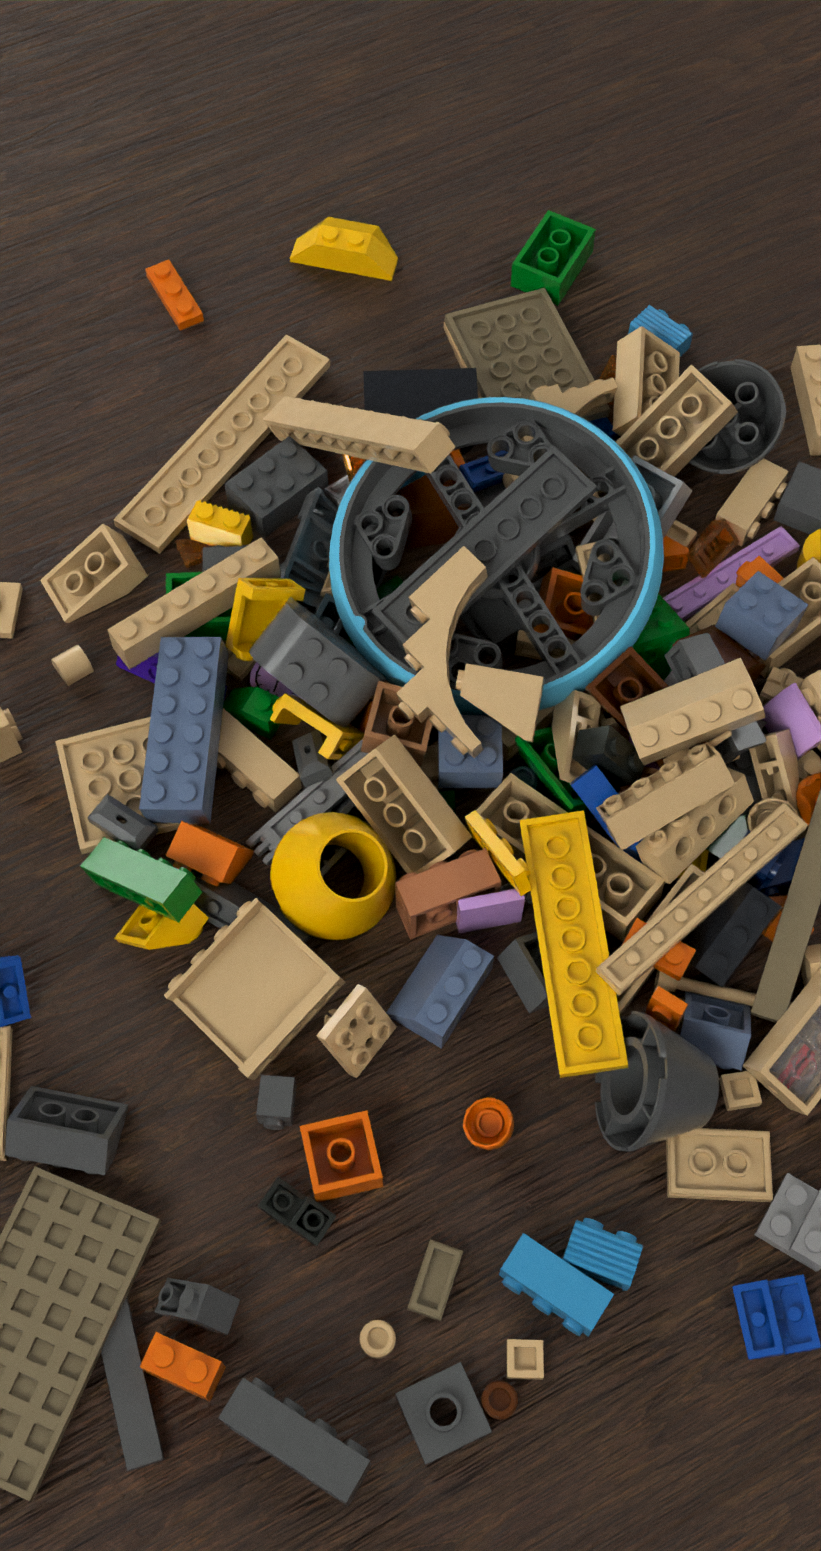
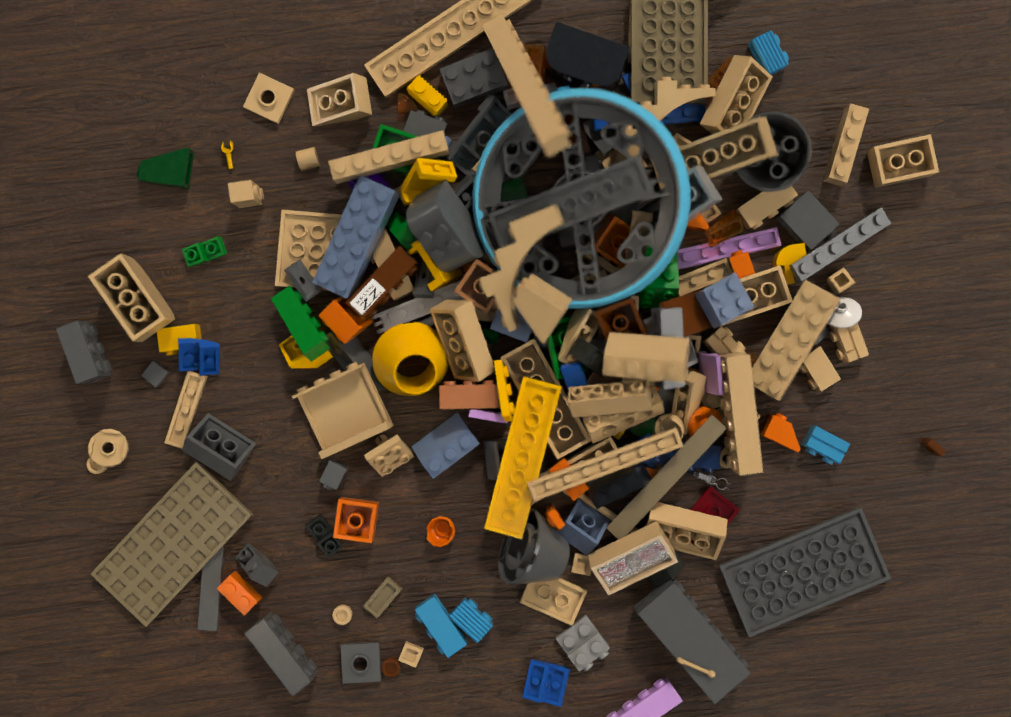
camera: 20 degrees right, 25 degrees up
(248, 777) = (382, 283): none -> reddish brown brick

